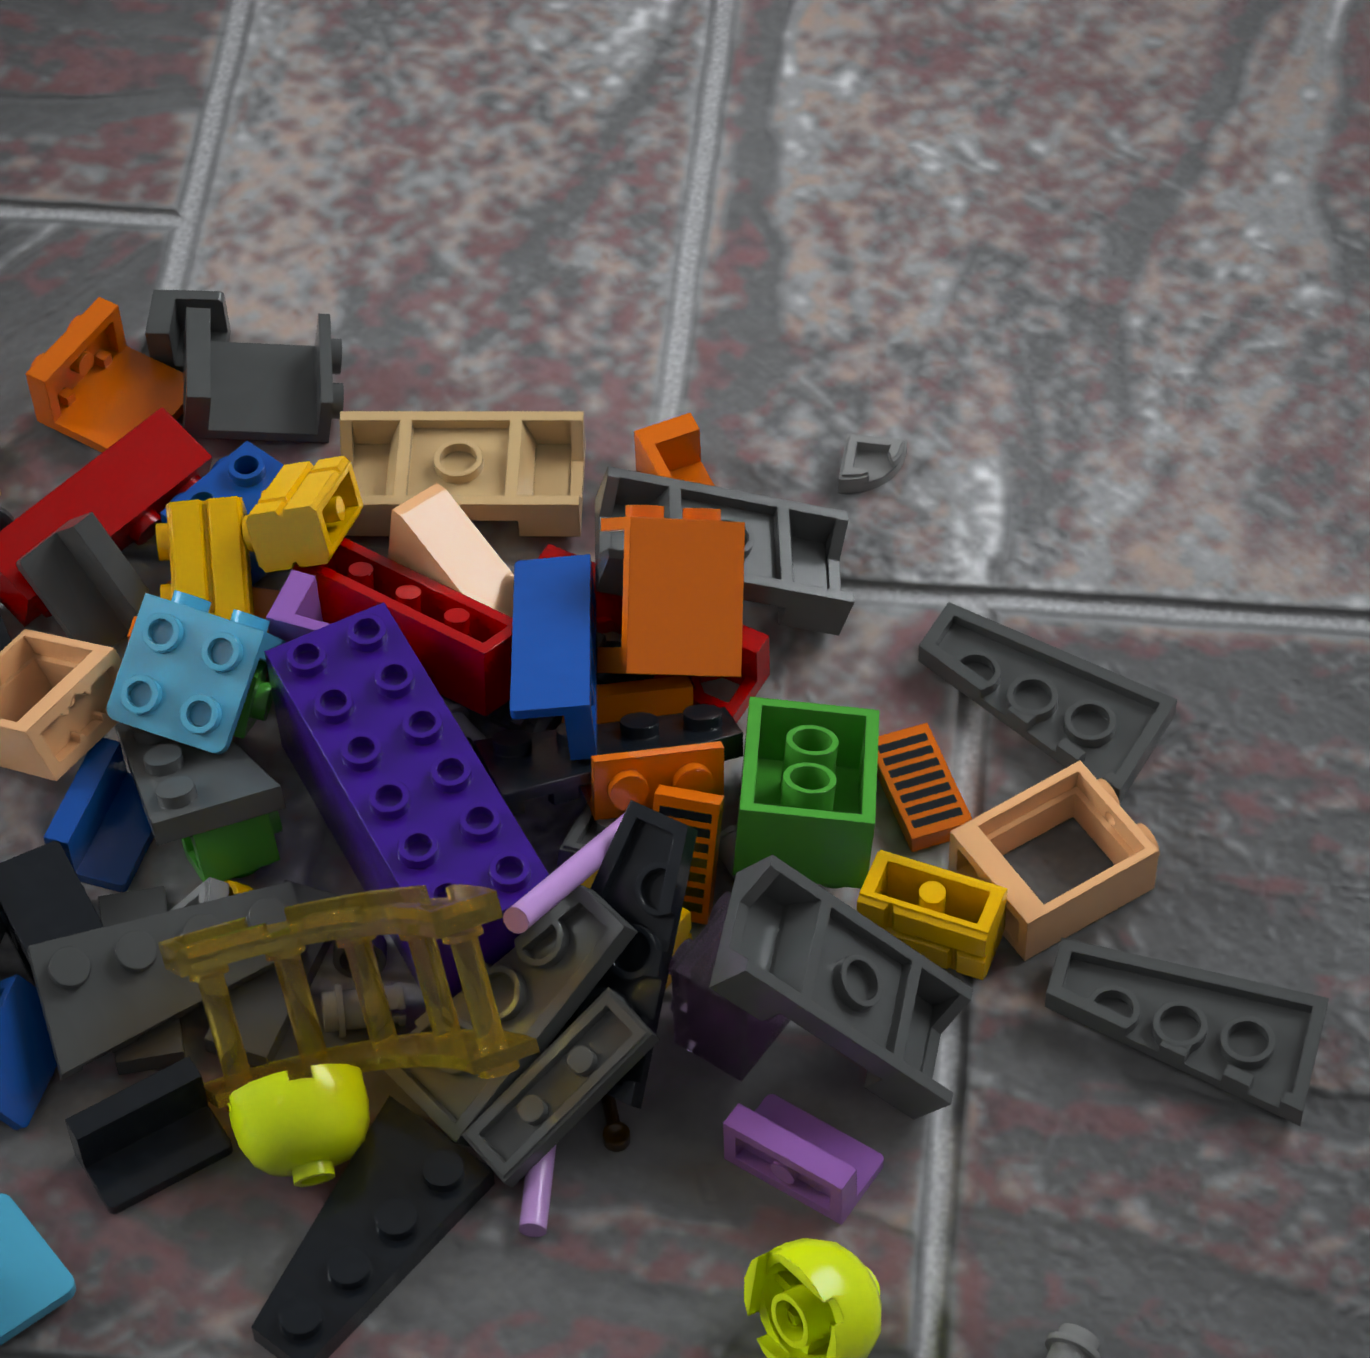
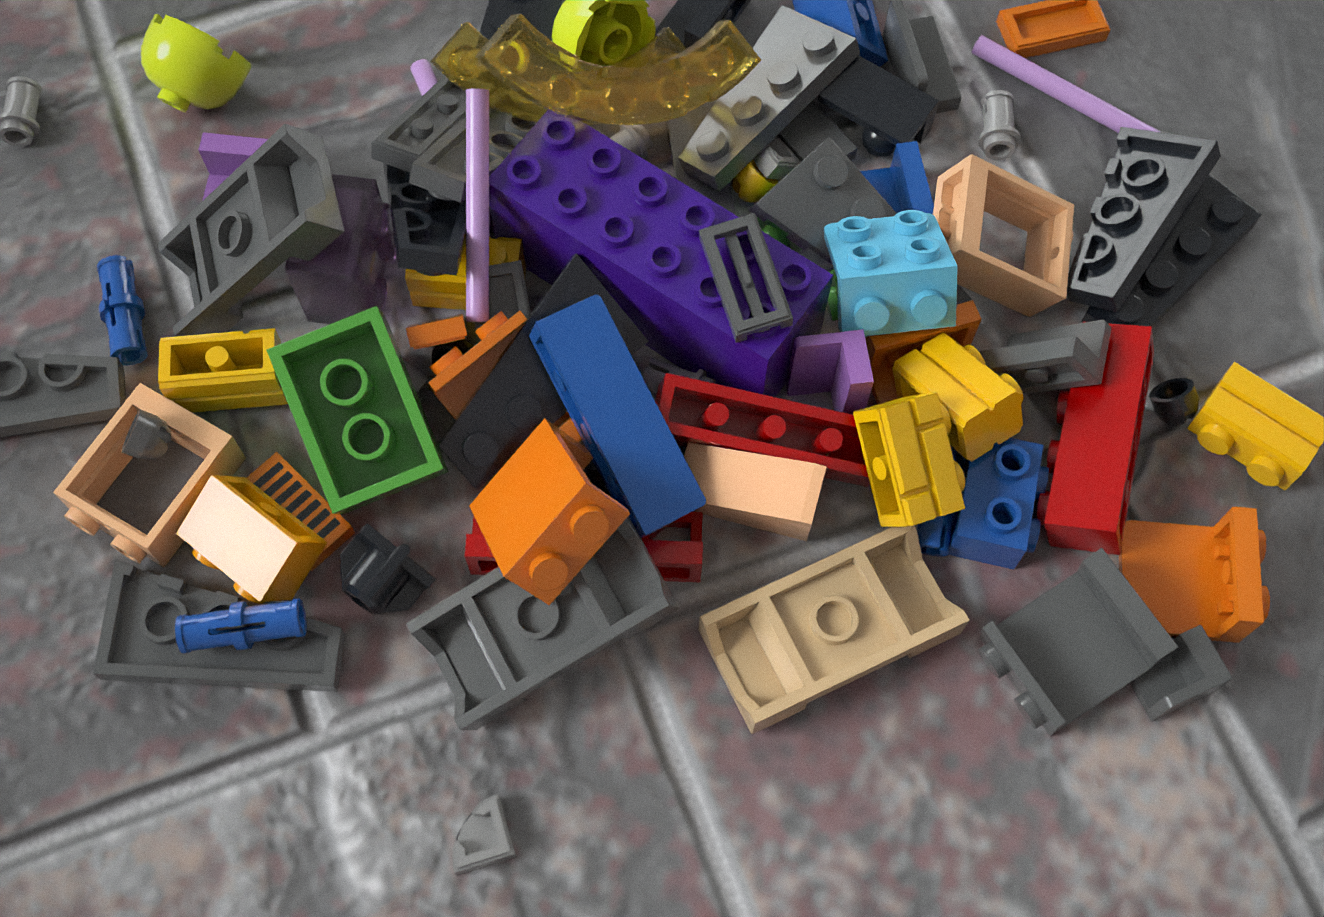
camera: 150 degrees right, 15 degrees up
(348, 697) = (759, 321): none -> dark grey tile
(671, 450) = (650, 730): orange panel -> none
(856, 674) = (380, 574): none -> black piece
(969, 743) = (250, 539): none -> brick
(1013, 661) = (202, 630): none -> blue pin
(1023, 1060) = (122, 310): none -> blue pin
(1042, 839) = (147, 437): none -> dark grey hinge

